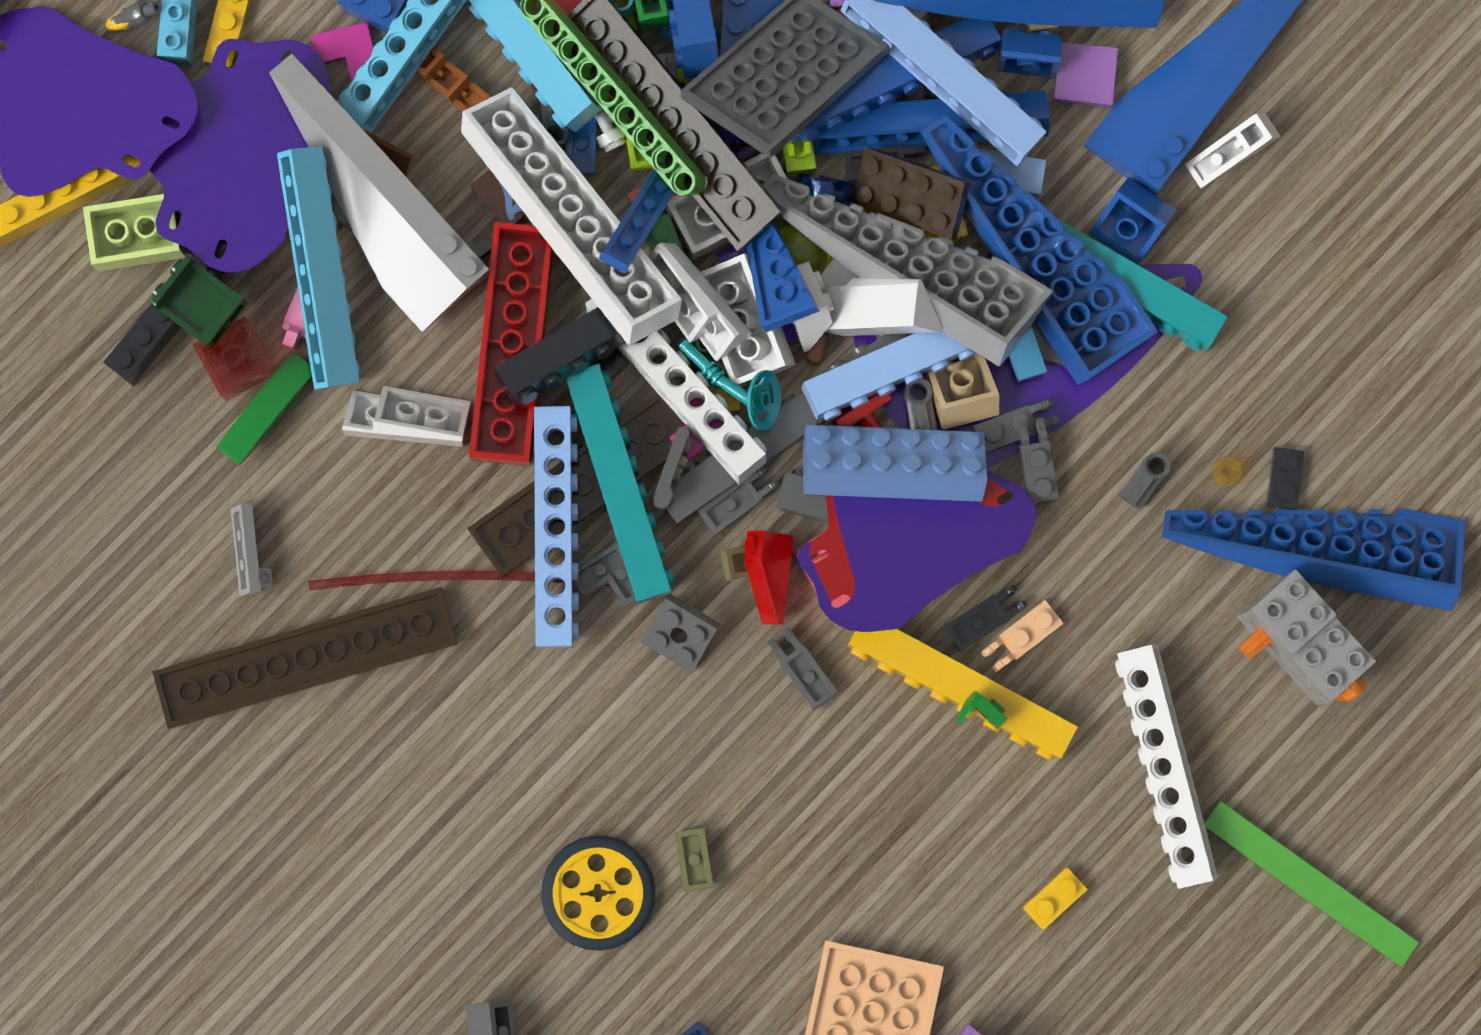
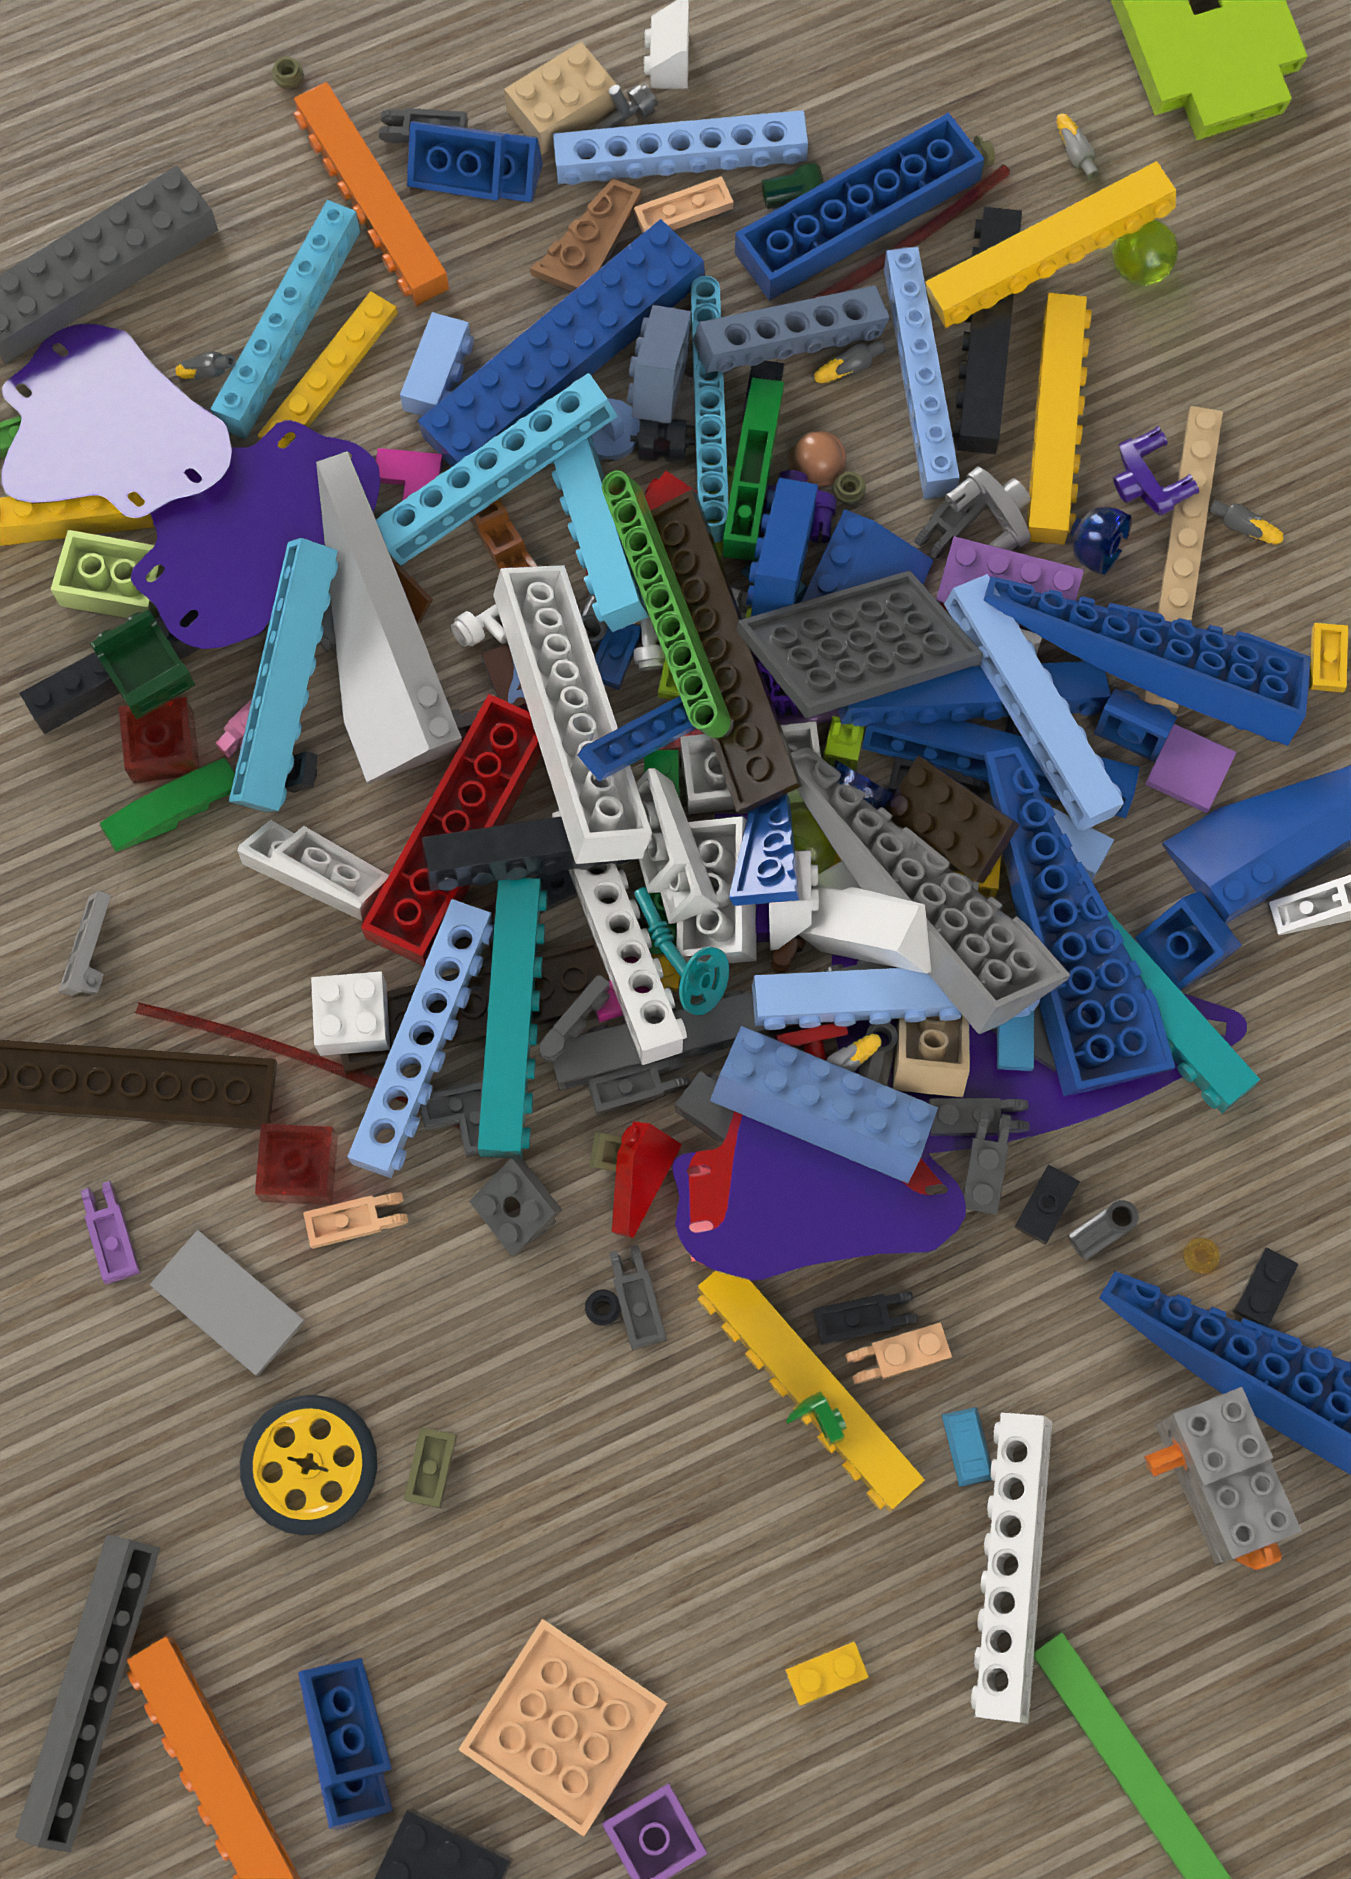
camera: 25 degrees right, 10 degrees down
(365, 341) = (302, 773): none -> black plate
(368, 776) = (110, 1236): none -> medium lavender hinge
(452, 168) = (469, 629): none -> white piece
(482, 793) = (227, 1303): none -> light grey tile
(489, 529) = (350, 1013): none -> white brick
(494, 665) = (296, 1164): none -> clear red brick
(553, 692) = (351, 1219): none -> light nougat hinge
(778, 696) = (598, 1297): none -> black plate
(903, 413) = (856, 1053): none -> piece
(1094, 475) = (1046, 1204): none -> black plate
(1099, 687) = (967, 1446): none -> dark azure tile

